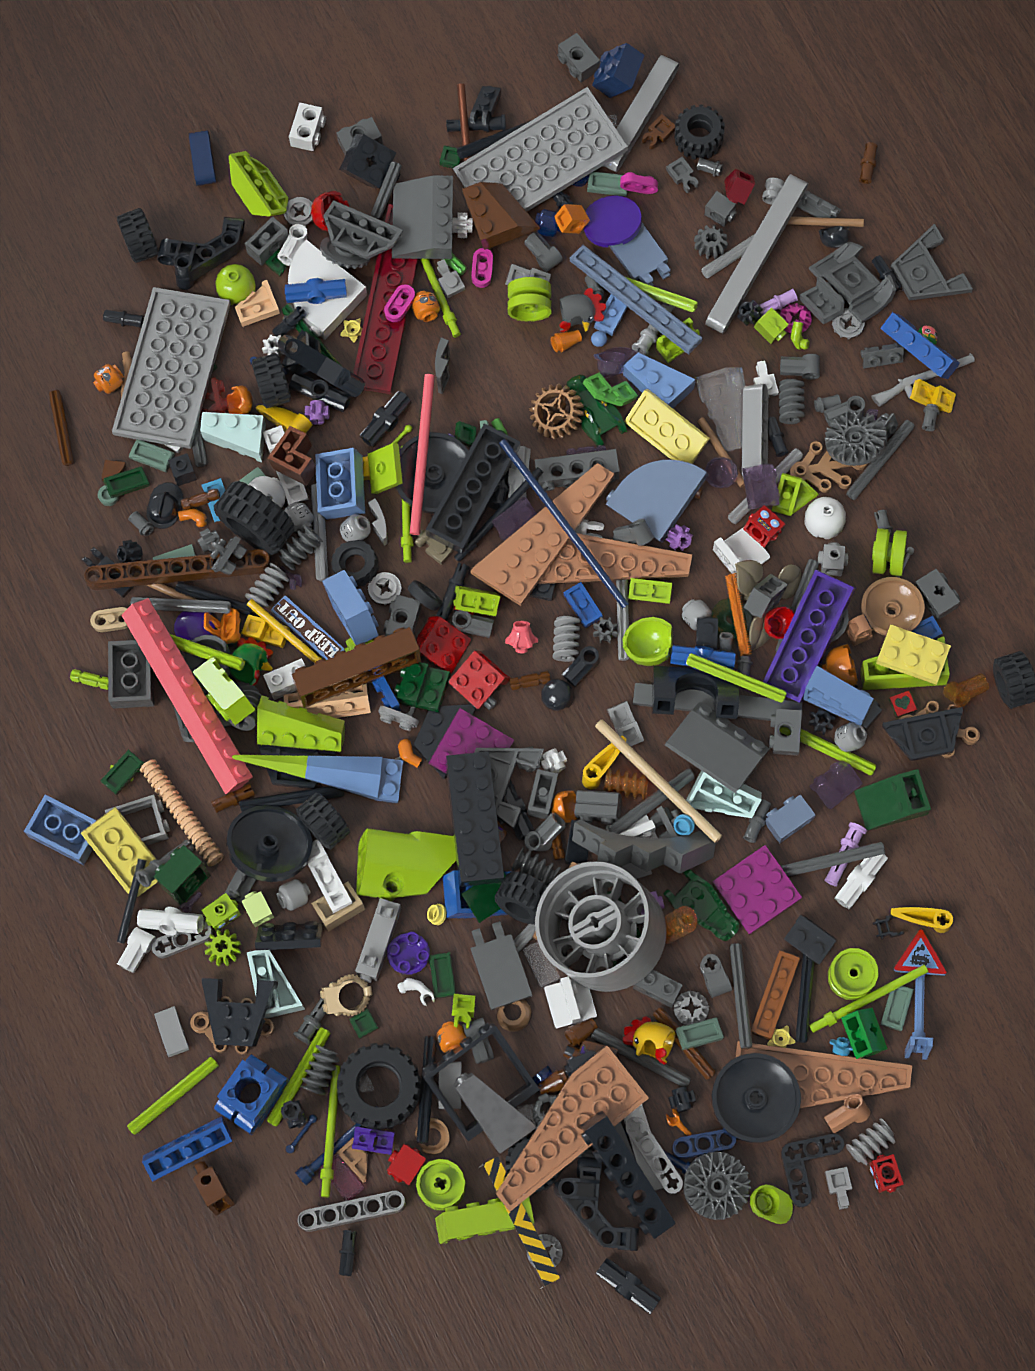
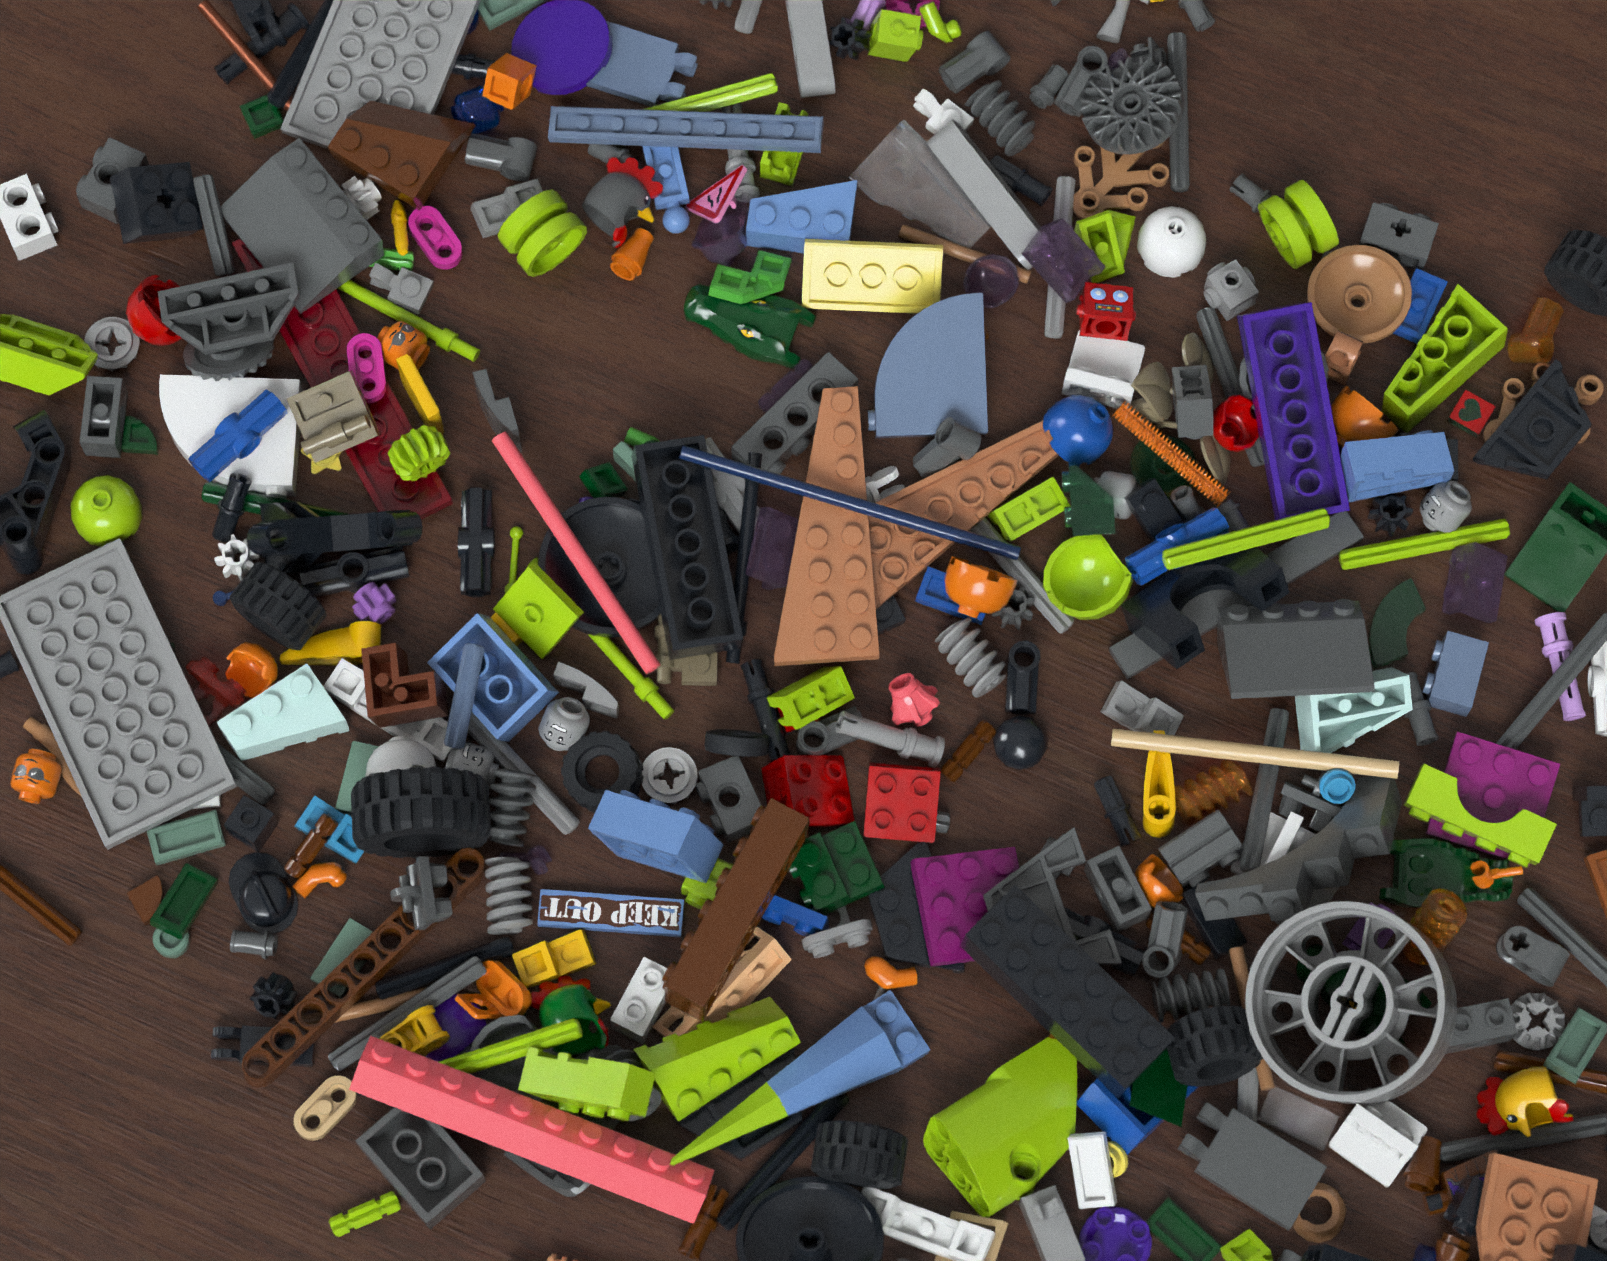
camera: 45 degrees left, 0 degrees up
(174, 616) = (418, 1032): none -> yellow piece
(206, 539) = (373, 894): dark grey gear -> none
(257, 306) = (163, 517): light nougat wing -> none
(283, 631) = (595, 940): yellow bar -> none
(292, 243) = (144, 394): white piece -> none
(318, 480) = (464, 696): none -> sand blue axle
(364, 313) = (332, 417): none -> dark tan plate
(389, 357) = (418, 453): none -> lime gear
(412, 333) = (419, 393): none -> yellow tile
(424, 911) = (1092, 1170): none -> white tile
(473, 246) = (399, 223): none -> yellow piece
(502, 653) = (906, 742): none -> light grey pin
(554, 761) = (1094, 833): white gear -> none
(558, 404) = (699, 339): medium nougat gear -> none
(575, 759) = (1116, 810): none -> black axle
(592, 606) = (977, 587): none -> orange cylinder
(619, 342) = (716, 199): none -> piece
(677, 607) = (1090, 506): none -> clear green slope
(679, 537) = (1007, 409): medium lavender gear -> none
(703, 570) = (1079, 429): none -> blue cylinder
(722, 922) = (1488, 875): none -> orange hand
(727, 865) = (1436, 797): none -> lime arch
(780, 772) = (1391, 623): none -> clear green tile
(792, 720) = (1362, 541): dark grey brick -> none
(913, 654) = (1442, 336): light yellow plate -> none

